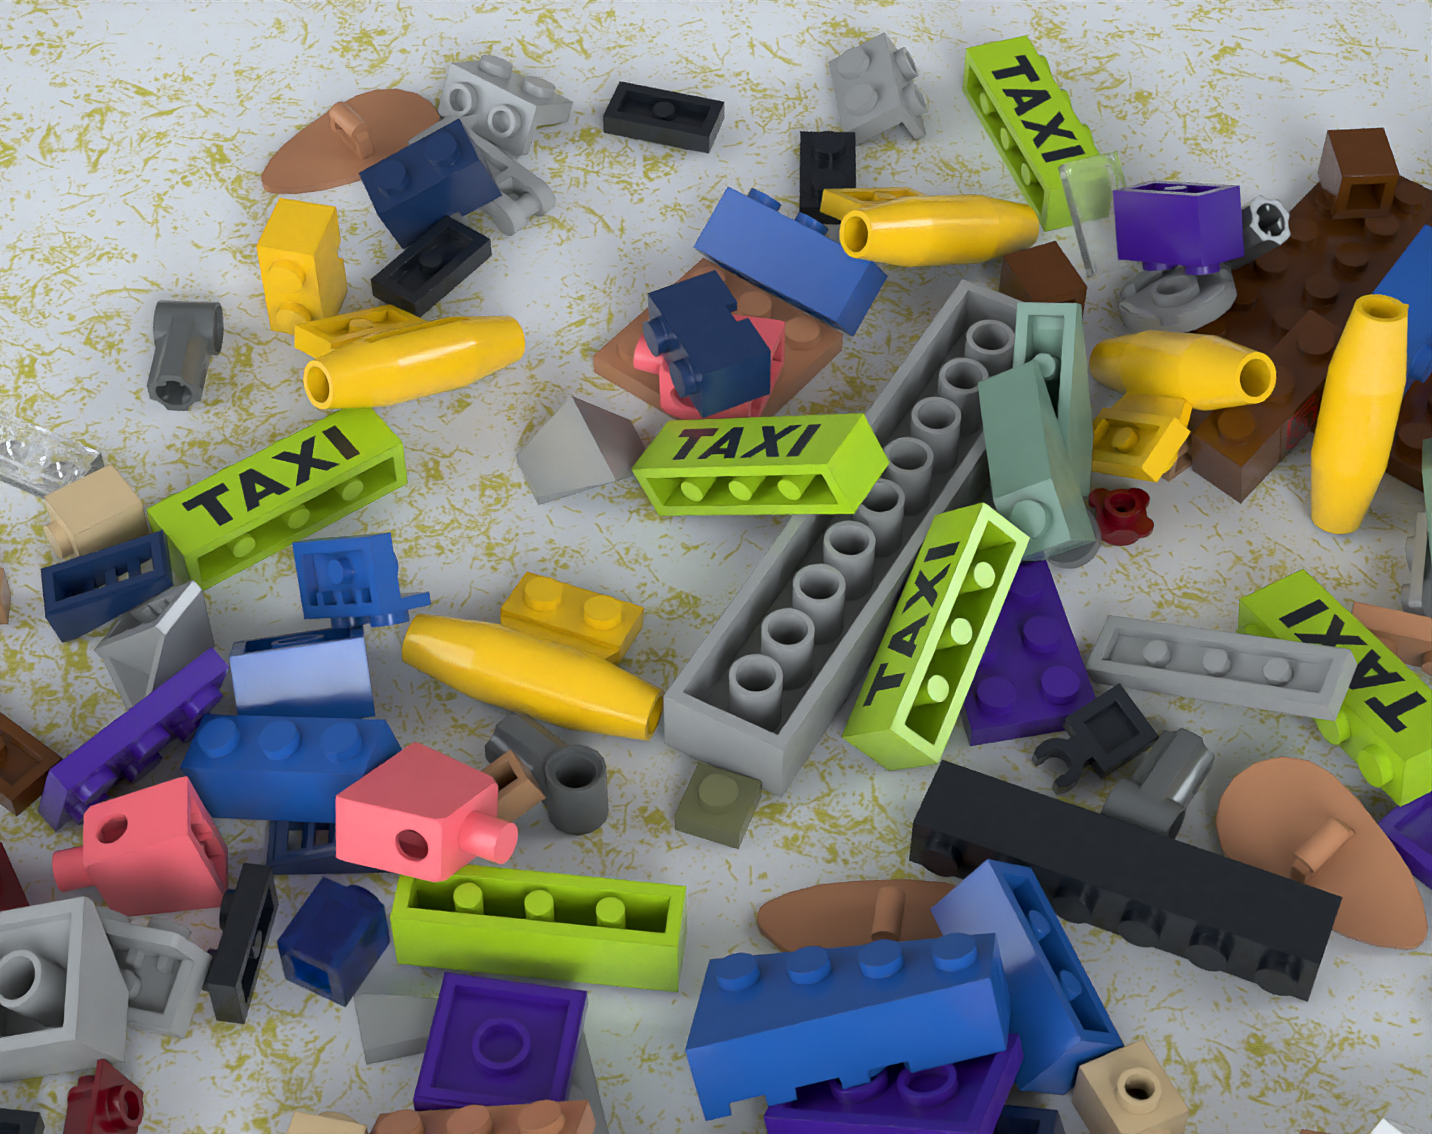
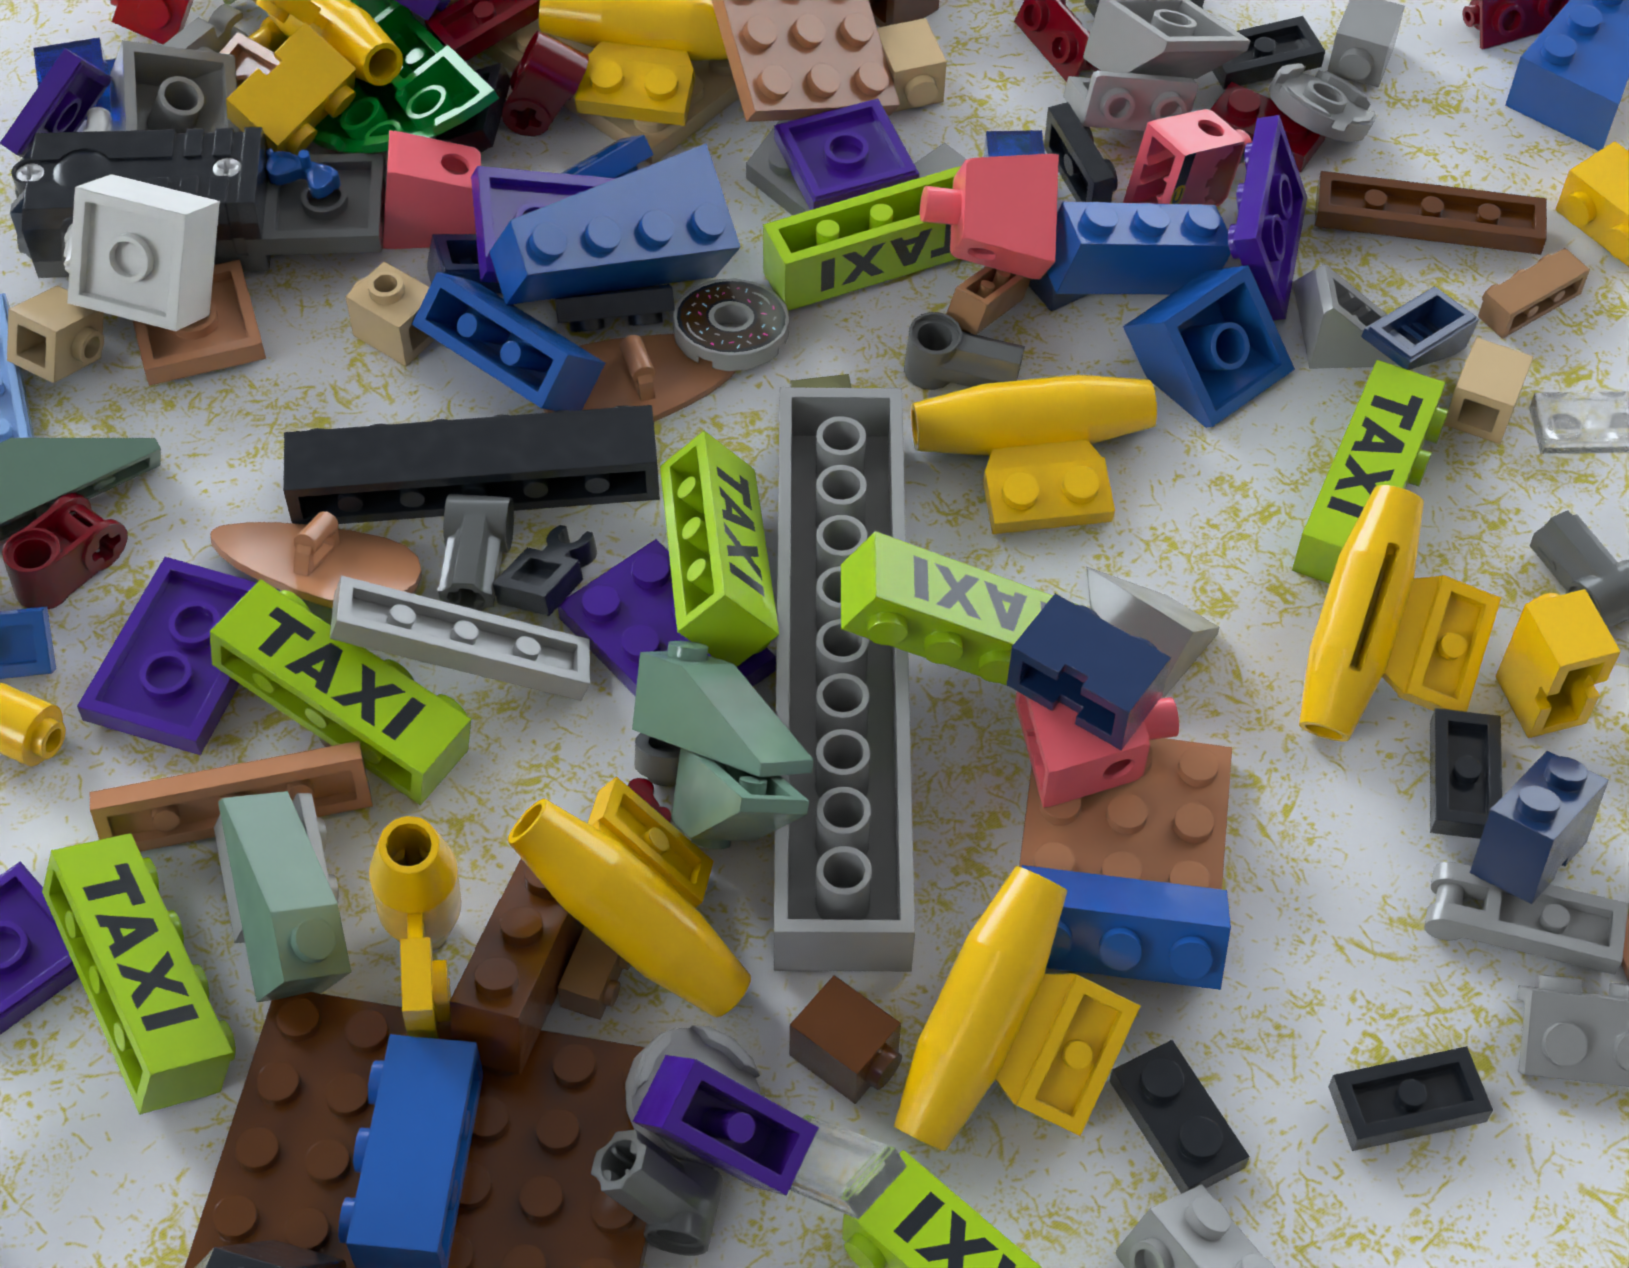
camera: 150 degrees right, 5 degrees up
(353, 581) = (1216, 390): blue bracket -> none
(753, 895) = (733, 300): none -> tile

